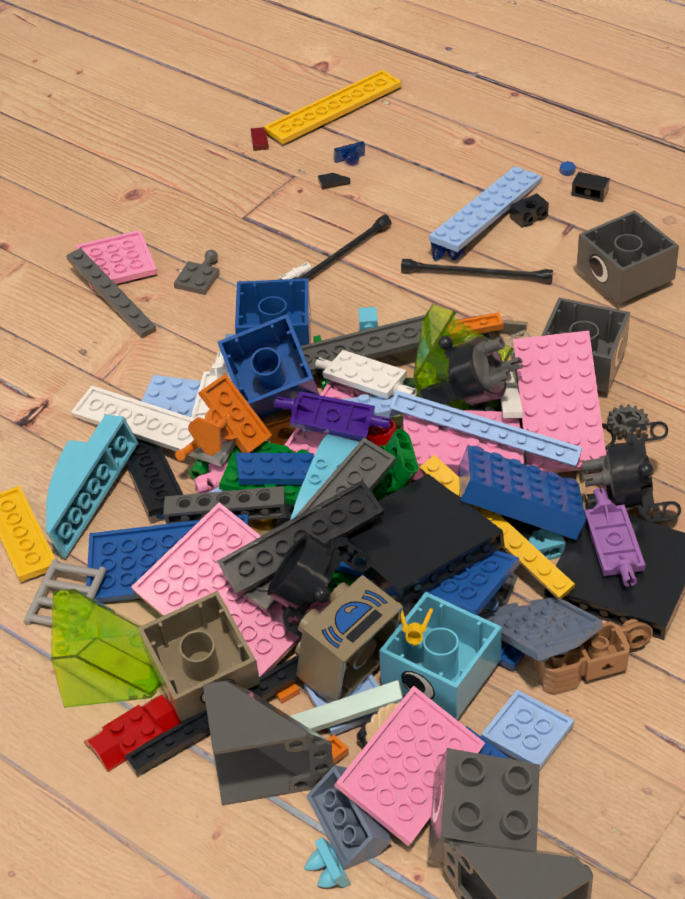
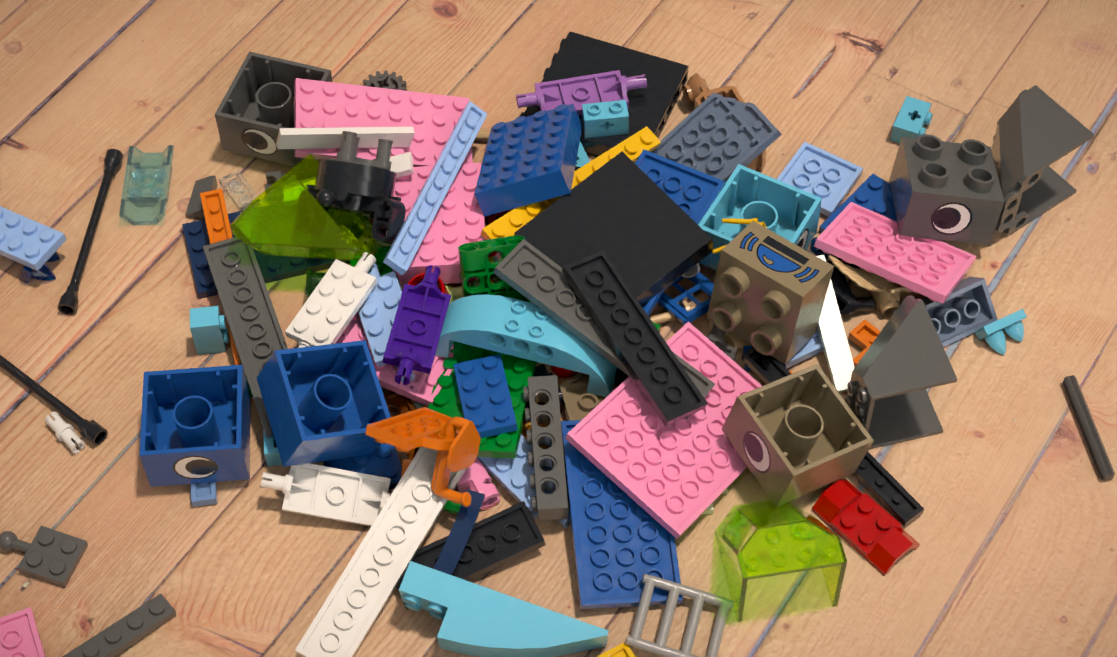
camera: 95 degrees left, 10 degrees up
(163, 466) = (459, 534): none -> dark blue sticker
(172, 394) = (311, 556): light blue plate -> none
(307, 573) = (685, 340): black piece -> none
(521, 292) = (146, 186): none -> clear light blue piece
(528, 369) = (331, 137): none -> white tile
(581, 553) = (605, 119): none -> medium azure brick
(606, 818) = (911, 119): none -> medium azure brick
(627, 256) = (117, 66): dark grey brick -> none
(629, 474) = (492, 74): black piece -> none

